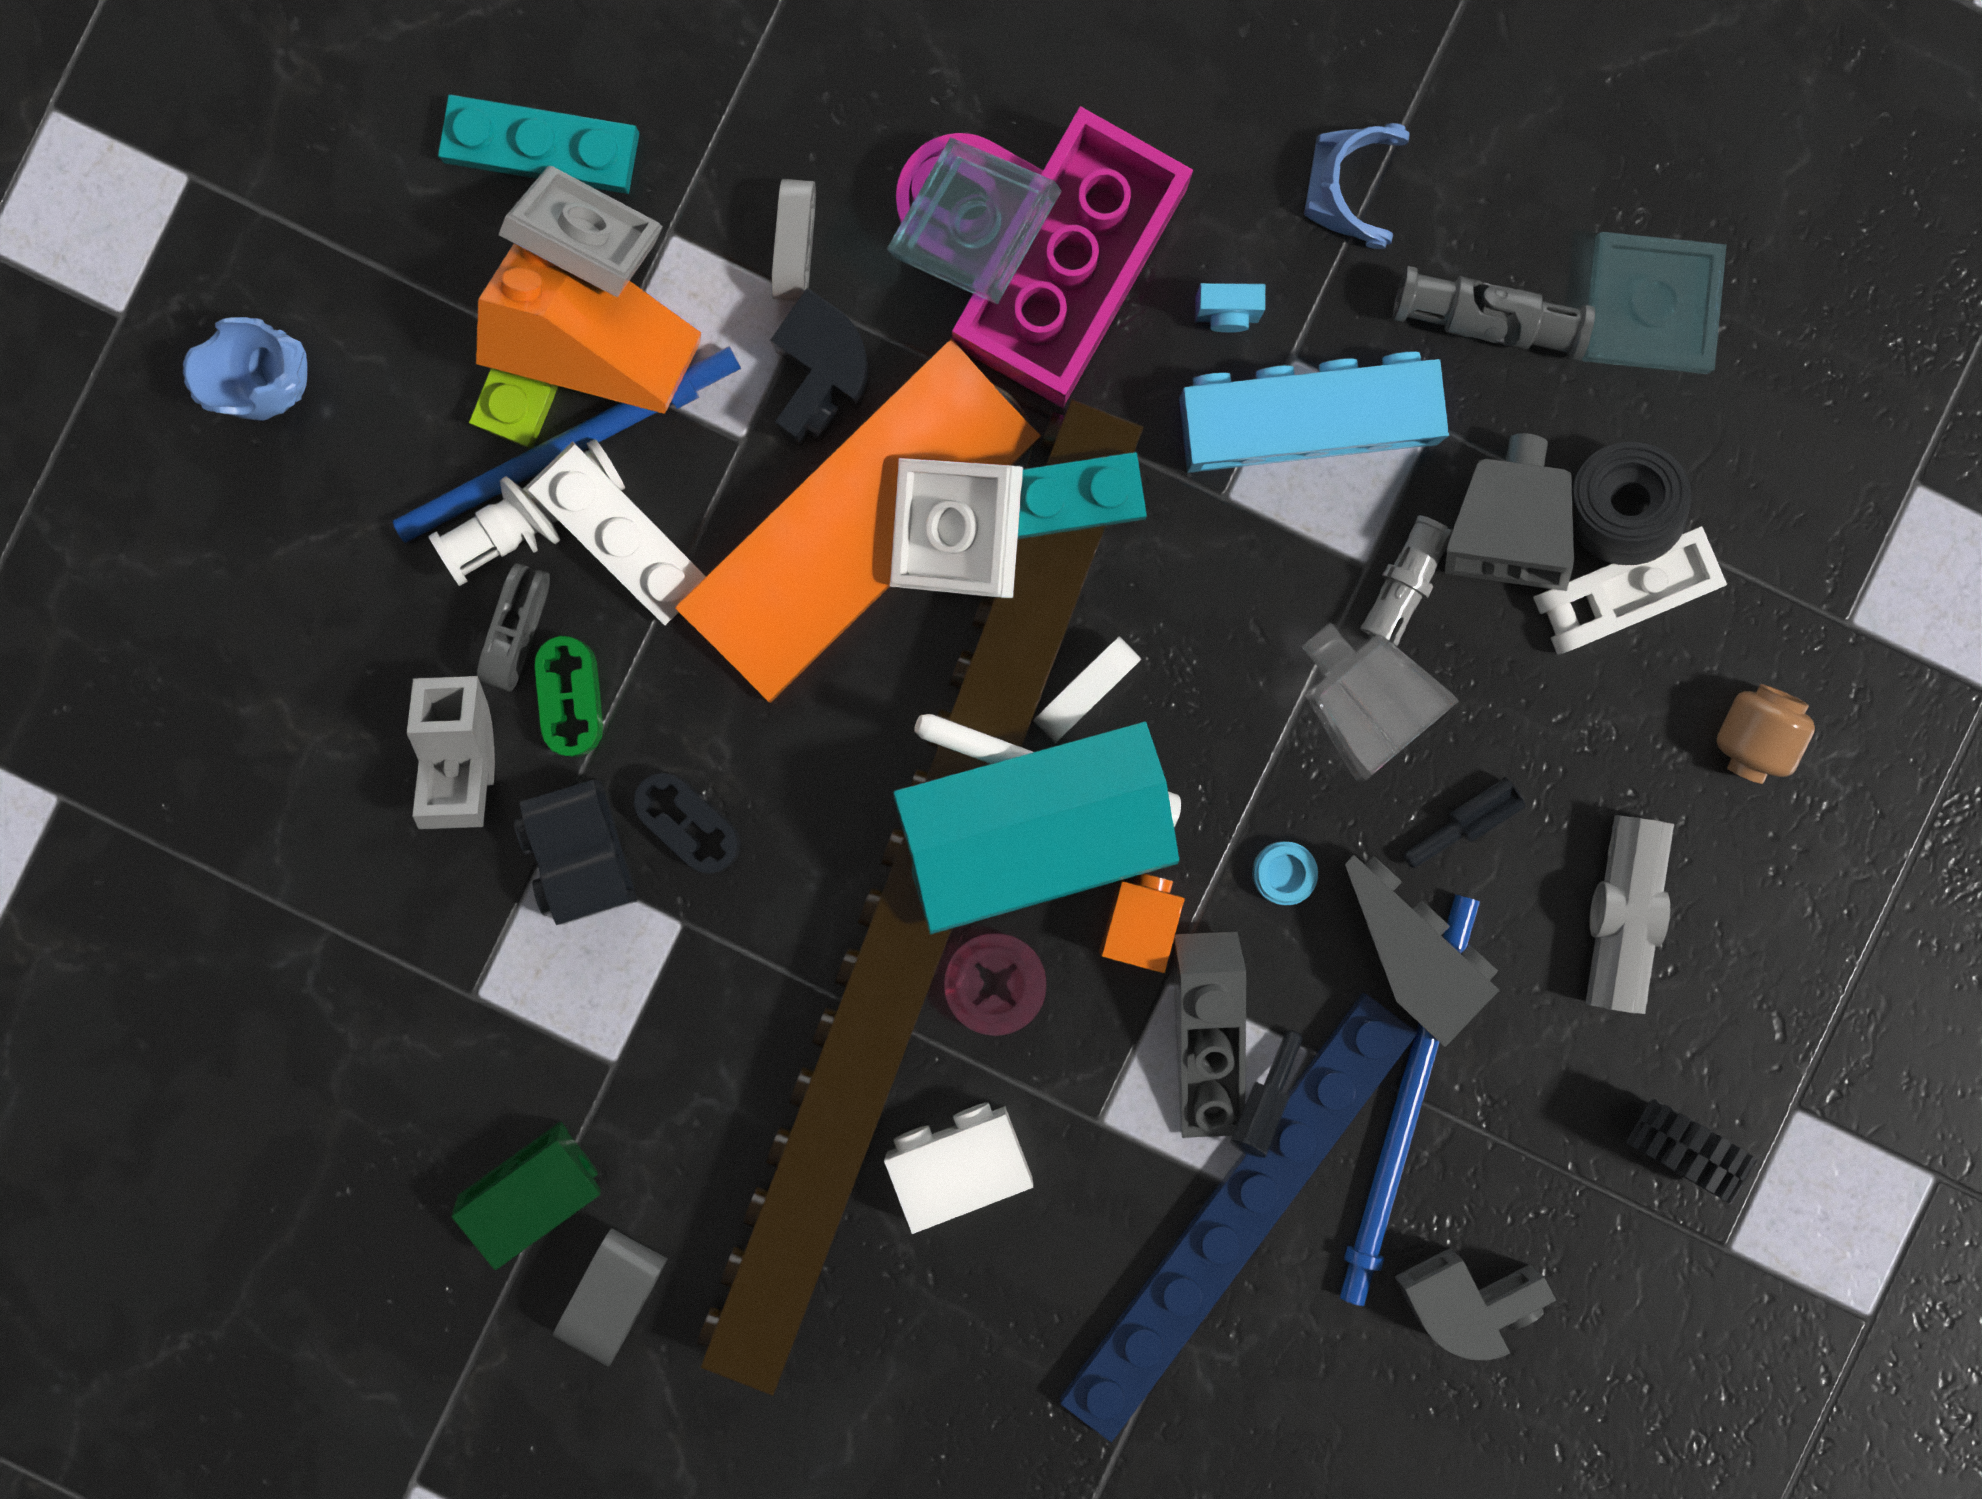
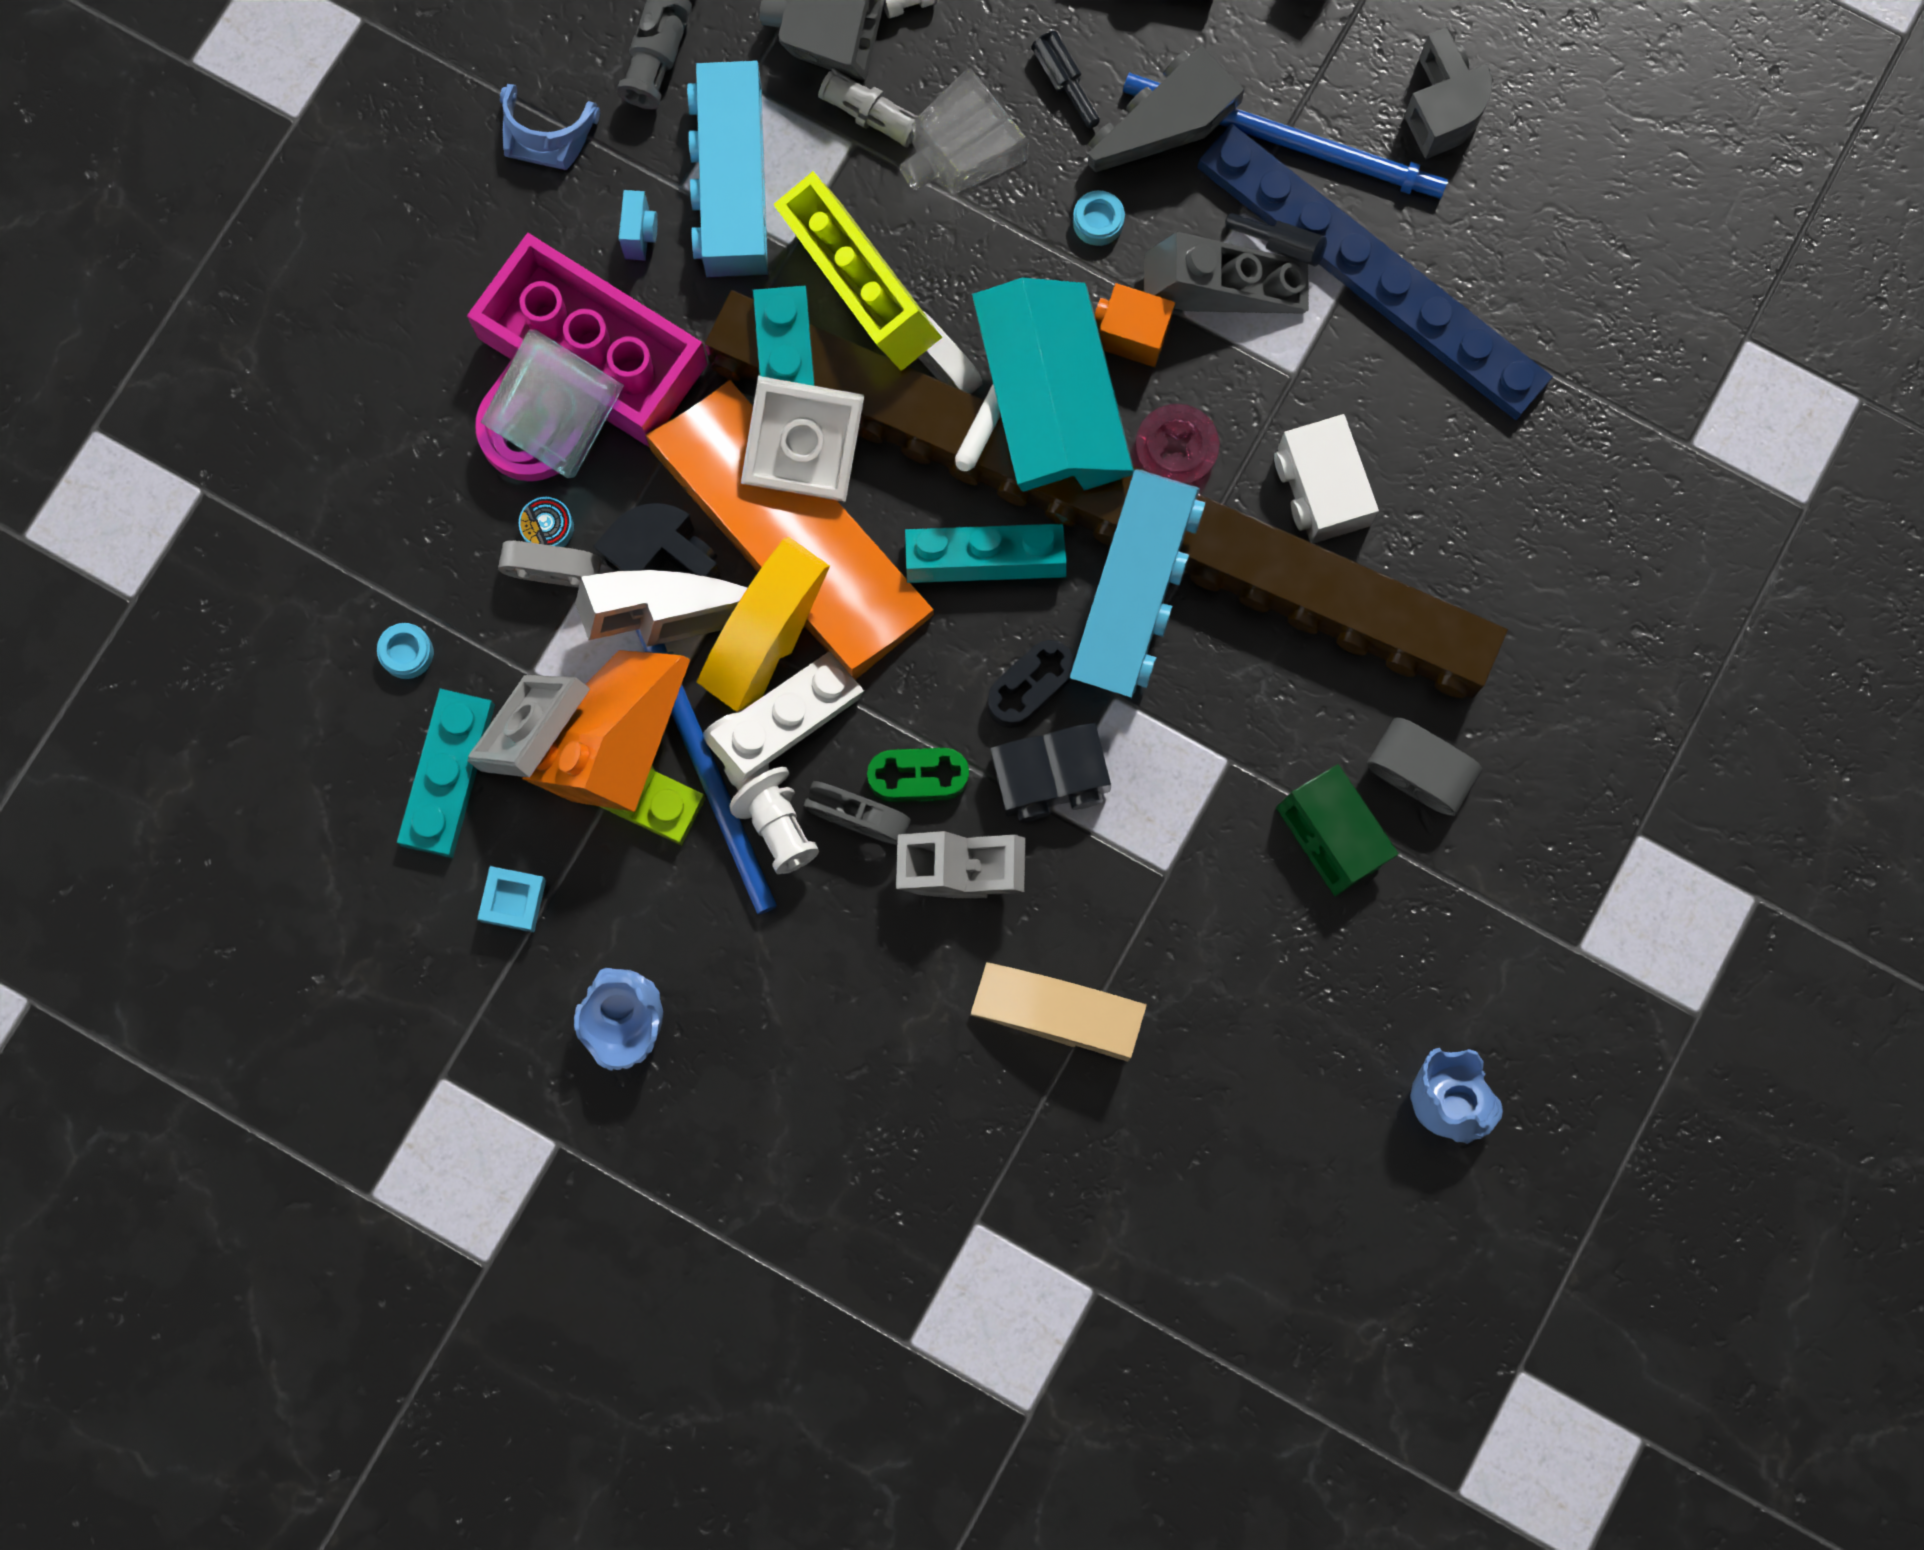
camera: 90 degrees left, 10 degrees down
(213, 1345) = (1454, 1097): none -> medium blue hair
(292, 880) = (1059, 1010): none -> tan slope
(389, 234) = (511, 899): none -> medium azure plate
(683, 81) = (405, 650): none -> medium azure tile
(719, 499) = (763, 625): none -> yellow slope
(742, 373) = (656, 602): none -> slope
(799, 943) = (1135, 583): none -> medium azure brick
(842, 759) = (985, 553): none -> teal plate
(847, 232) = (546, 522): none -> tile
(1172, 578) = (857, 271): none -> neon yellow brick

